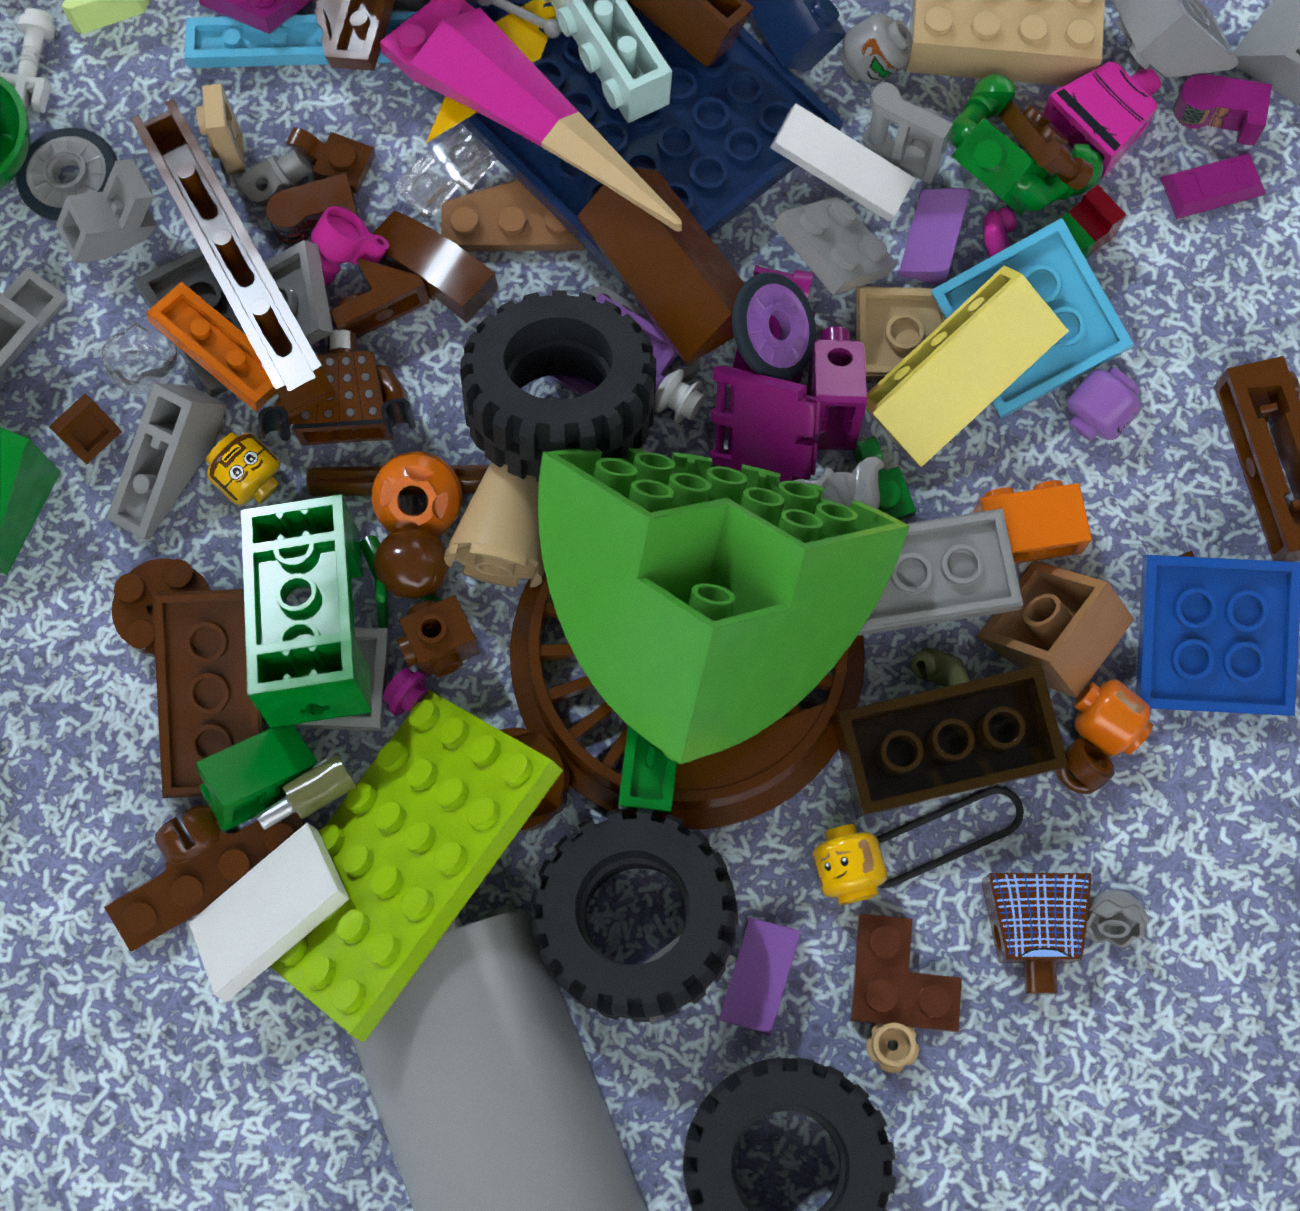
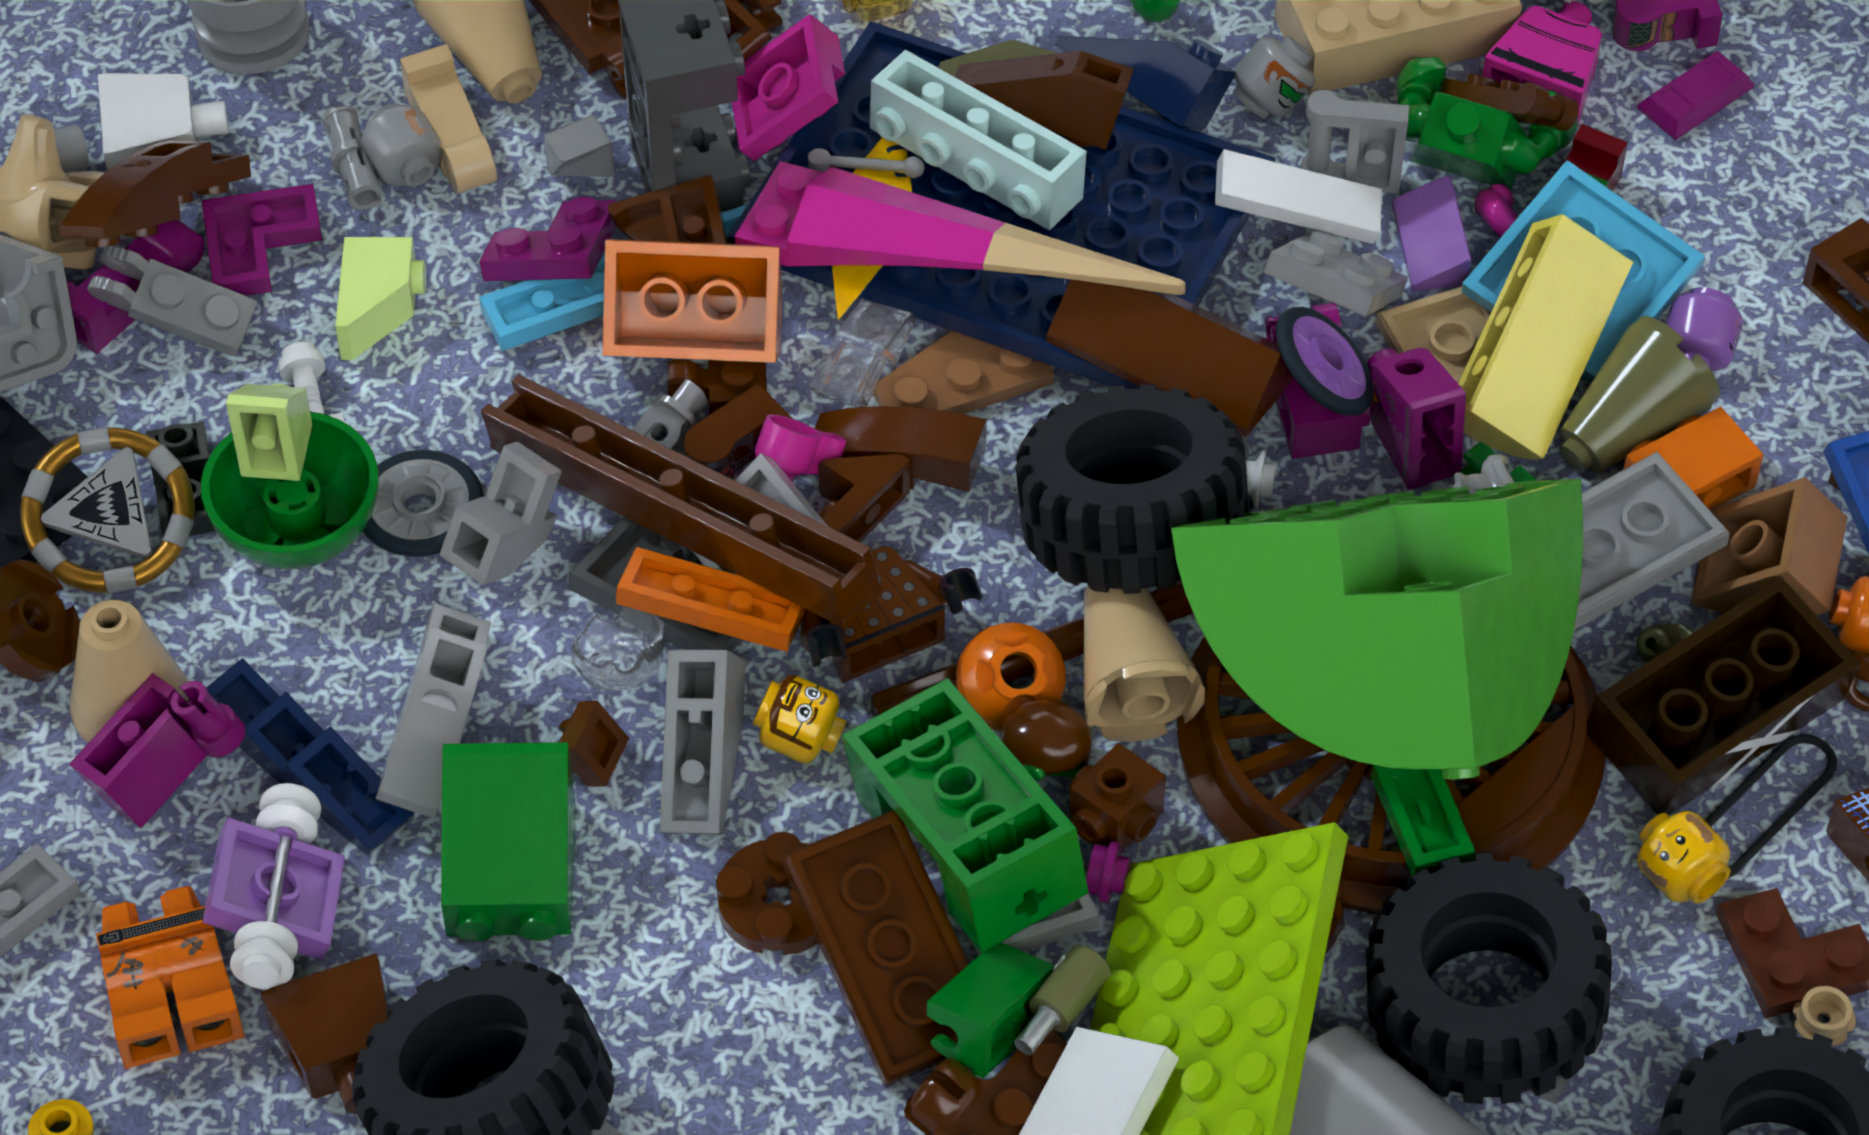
camera: 25 degrees left, 20 degrees down
(223, 130) = (594, 375): tan plate -> none
(325, 88) = (692, 301): none -> orange slope
(760, 976) = (1649, 1007): medium lavender slope -> none
(765, 424) = (1362, 451): magenta plate -> none
(1015, 447) = (1636, 397): none -> olive cone

